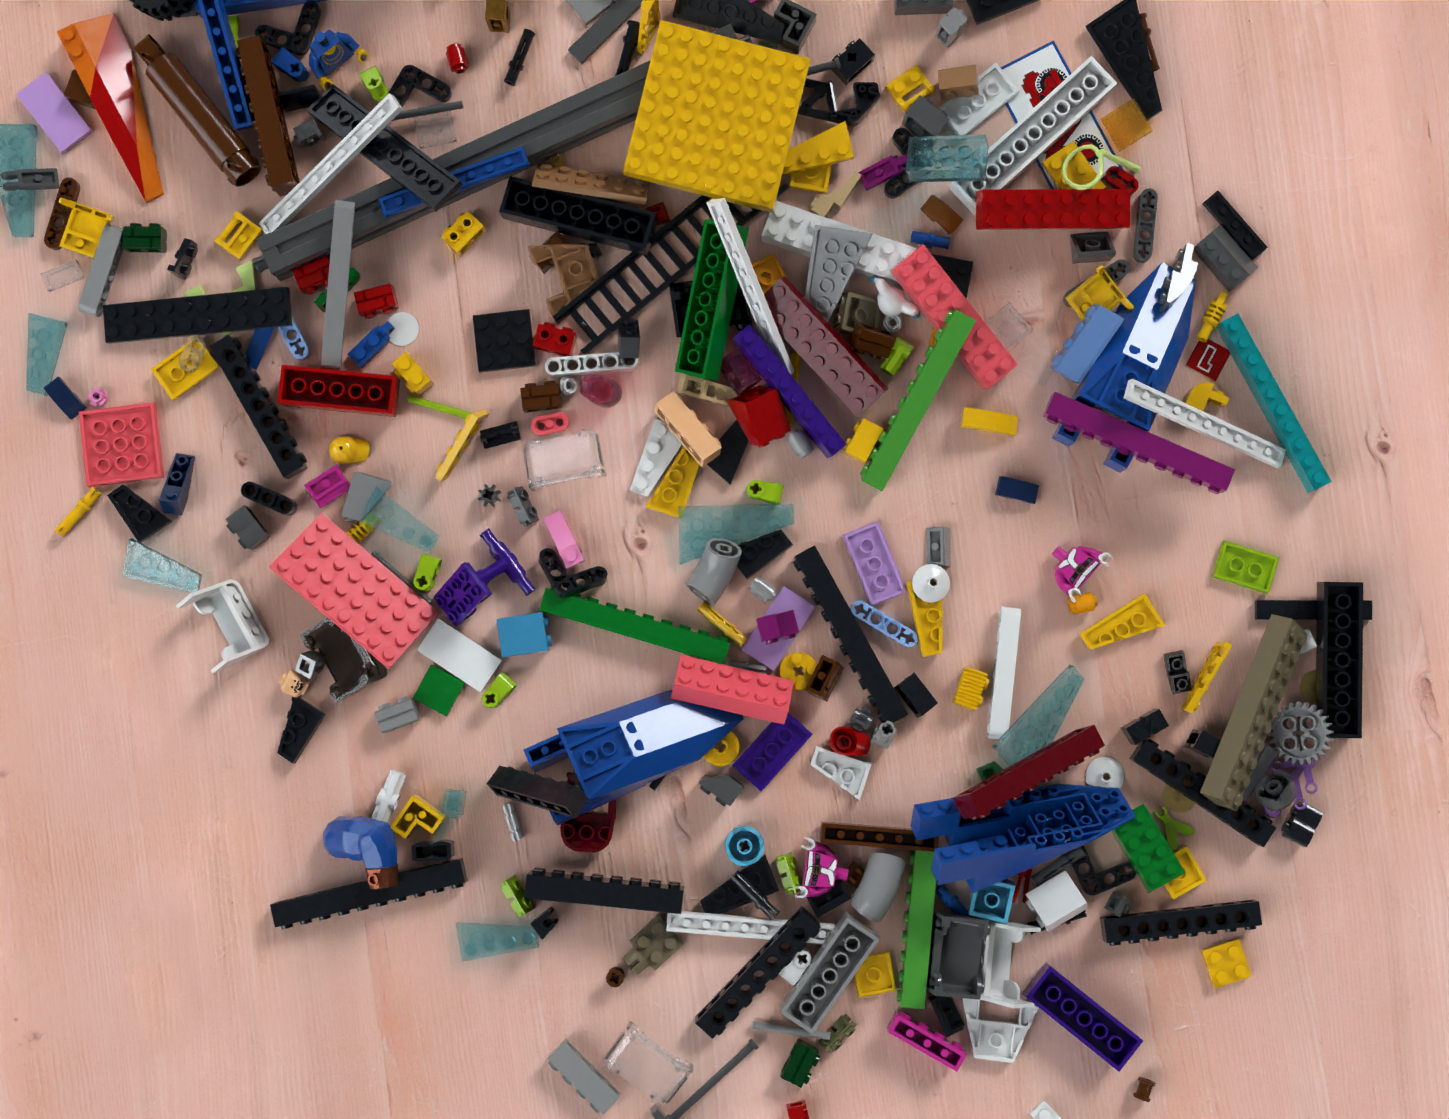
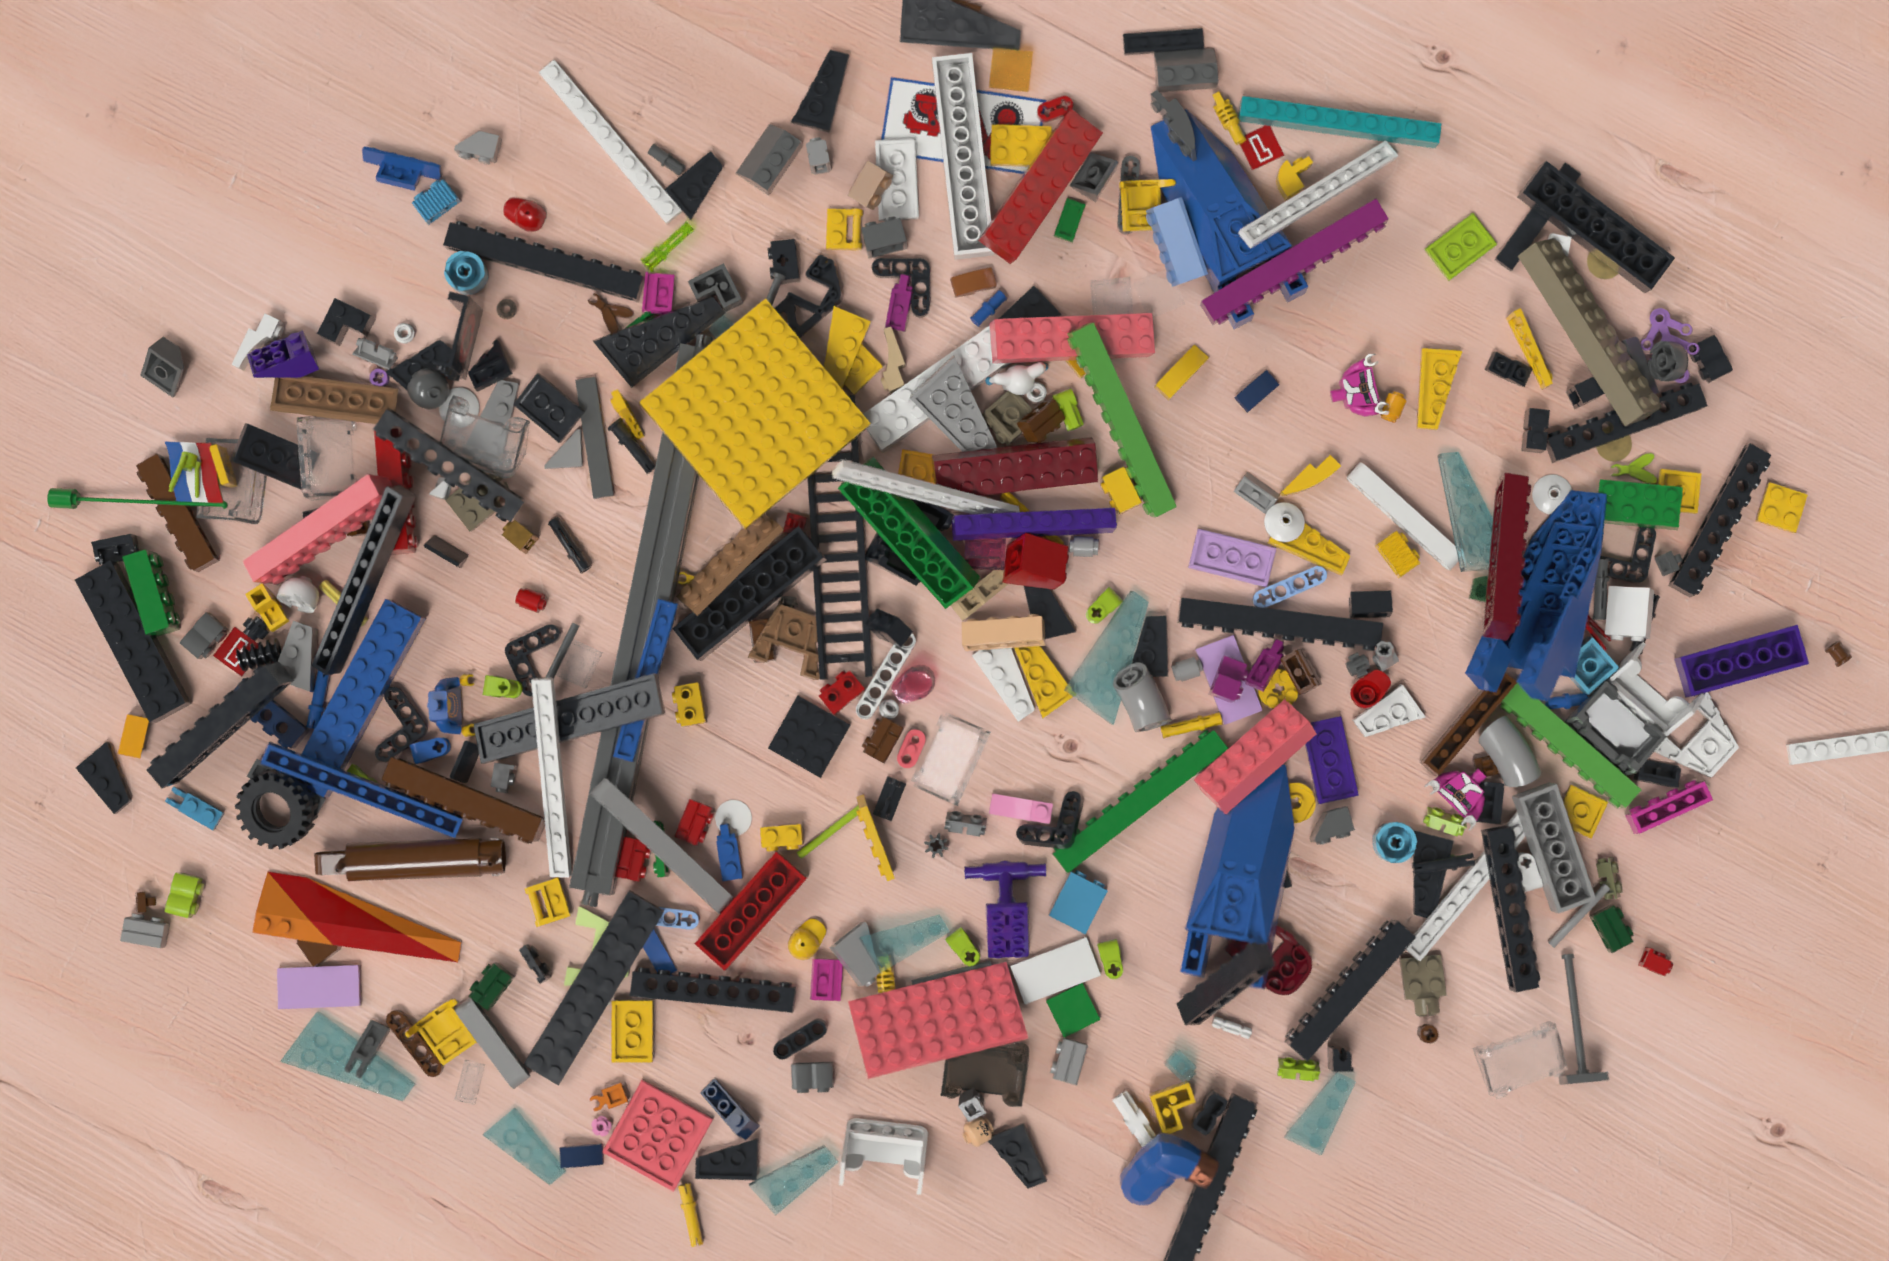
camera: 55 degrees left, 0 degrees up
(125, 389) = (612, 1096): none -> orange plate
(188, 352) = (622, 1019): clear beam -> none
(583, 1076) = (1492, 1121): light grey brick -> none
(745, 665) = (1243, 730): light grey axle -> none
(808, 648) = (1265, 666): none -> magenta hinge
(947, 158) = (932, 244): clear light blue brick -> none
(981, 579) = (1311, 476): none -> yellow slope
(1043, 253) = (1069, 220): none -> green tile
(1100, 154) = (1022, 111): yellowish green piece -> none
(1148, 226) = (1108, 117): dark grey beam -> none
(1318, 732) = (1645, 290): light grey gear -> none

